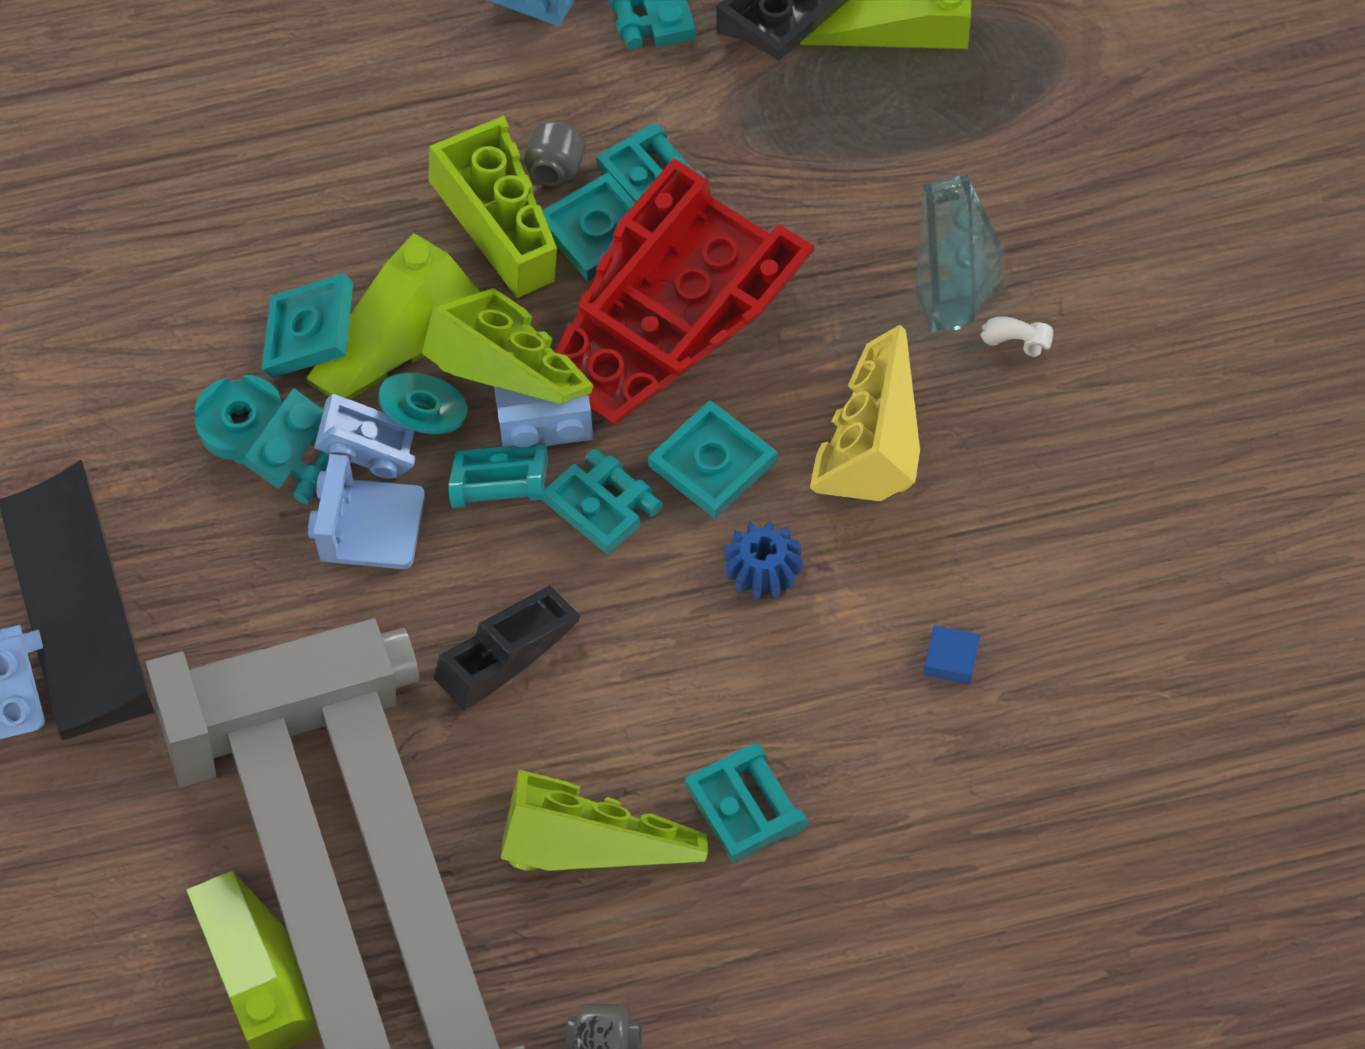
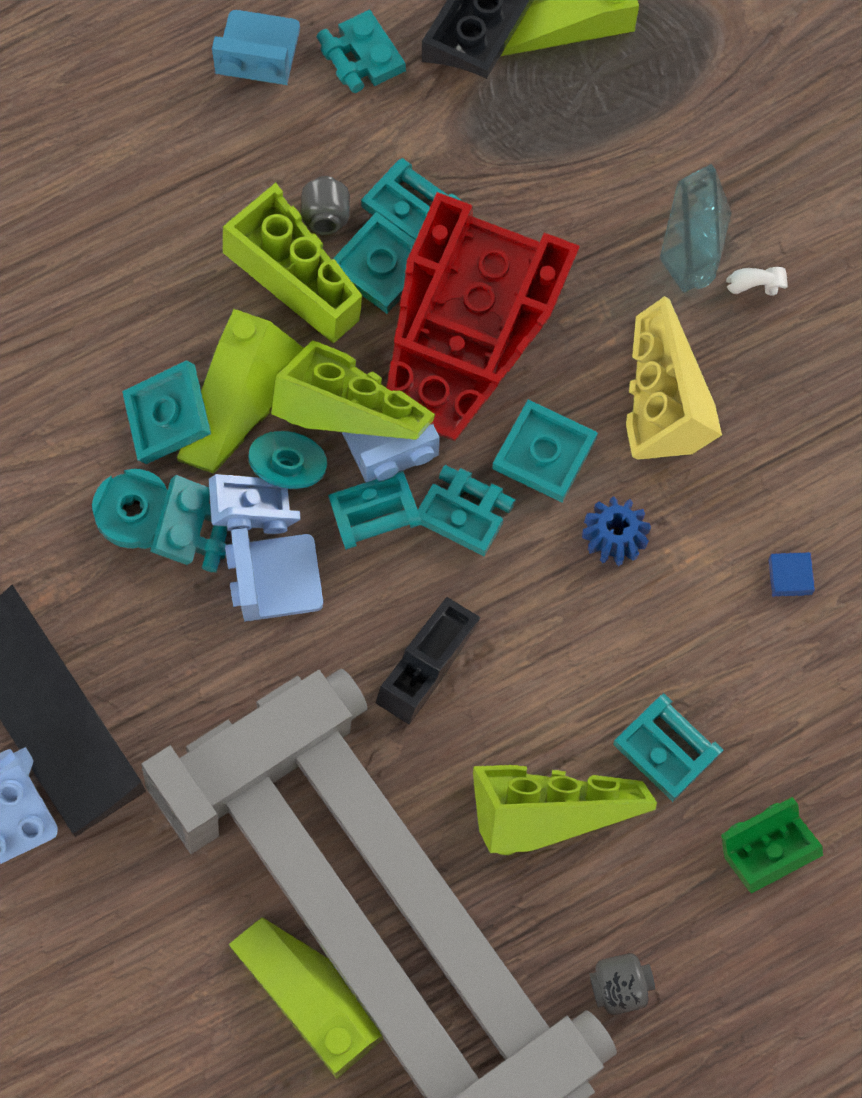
camera: 20 degrees left, 10 degrees up
(825, 932) = (770, 845): none -> green bracket

